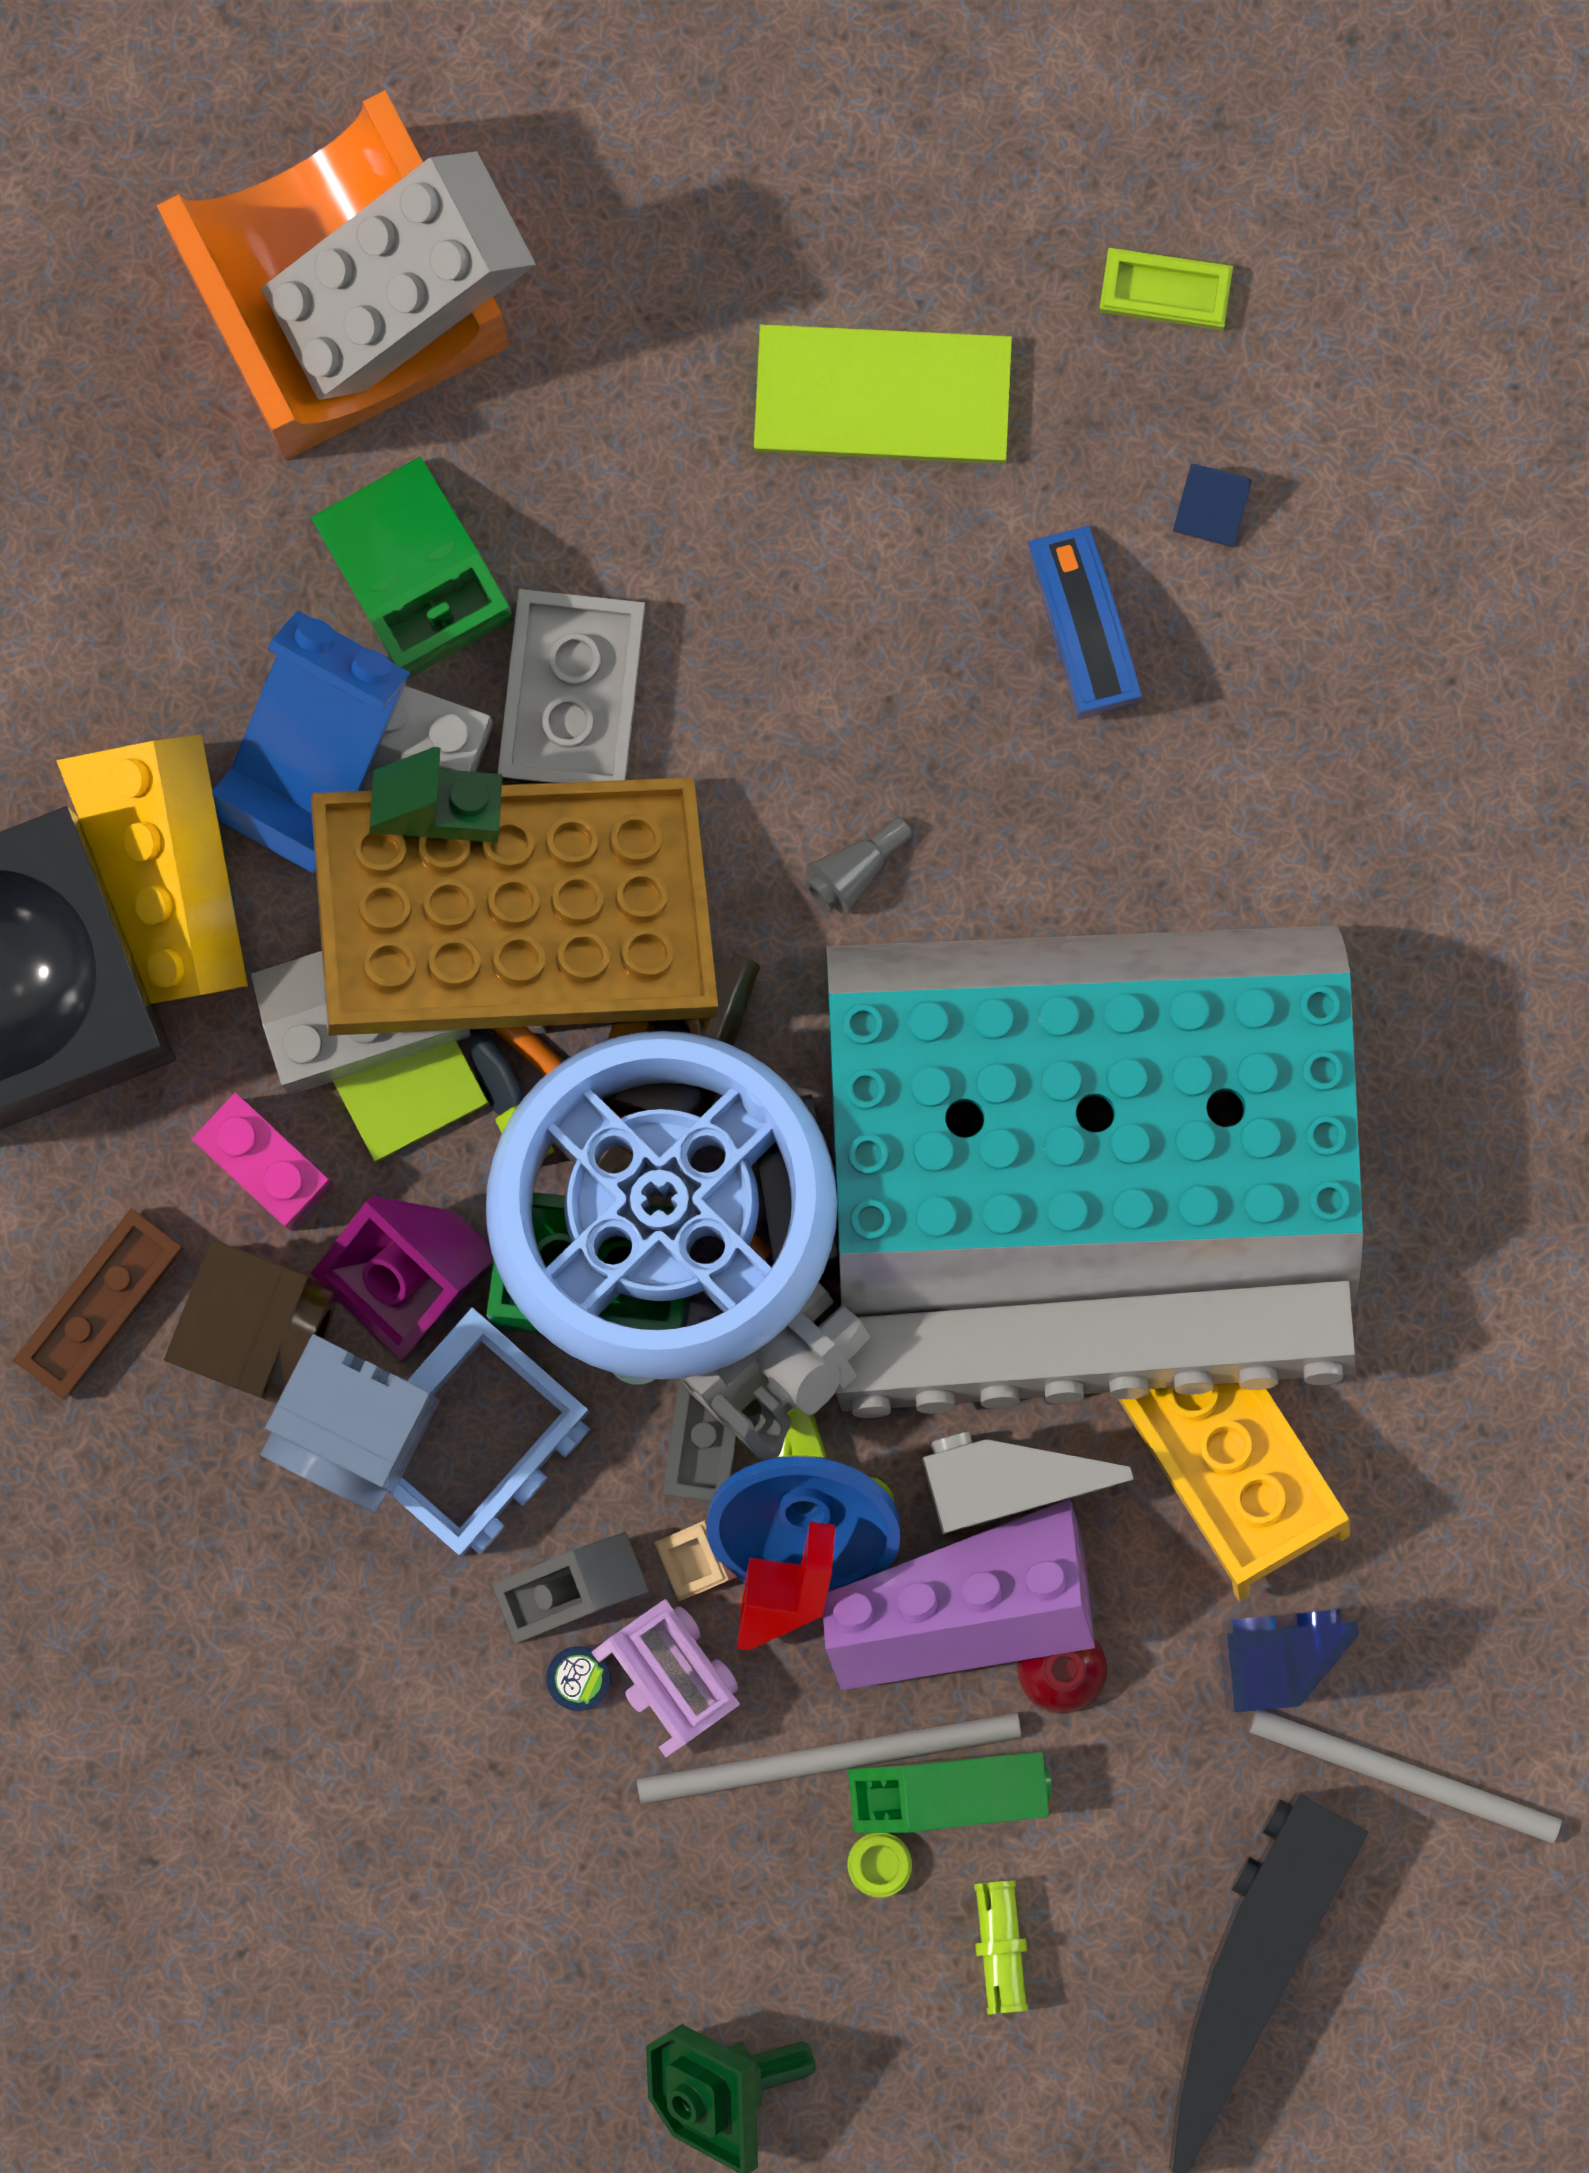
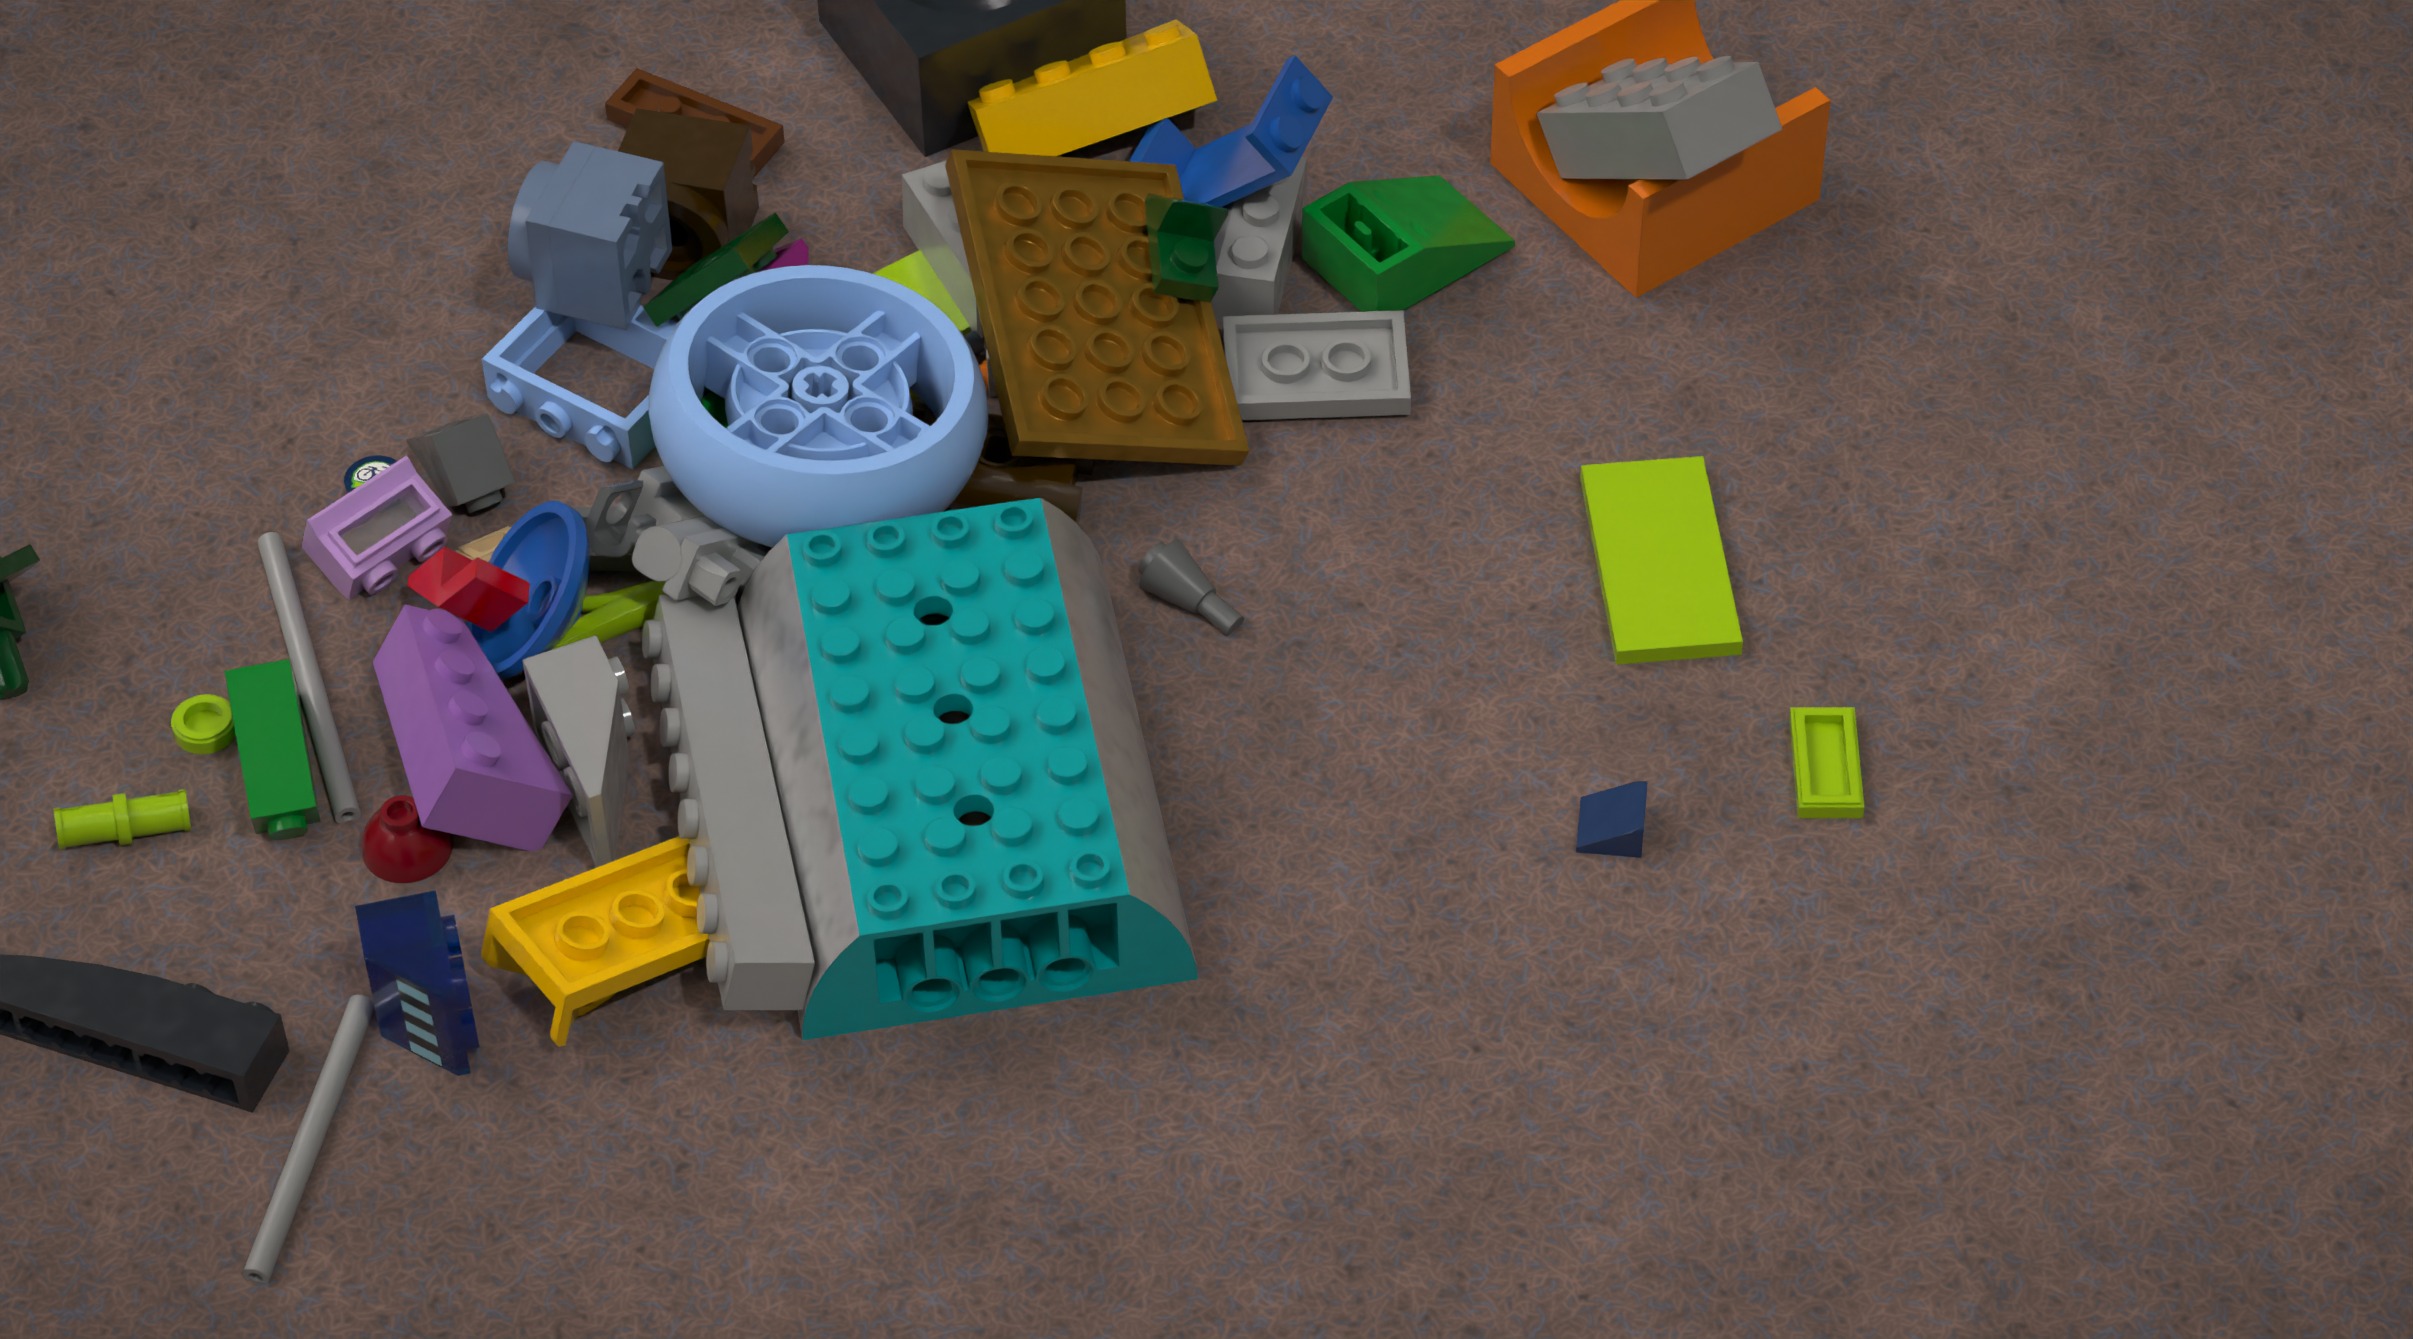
camera: 80 degrees right, 35 degrees down
(262, 1162) = (838, 199): dark pink brick -> none
(396, 1295) = (729, 262): none -> dark green plate
(1085, 623) = (1460, 726): blue slope -> none

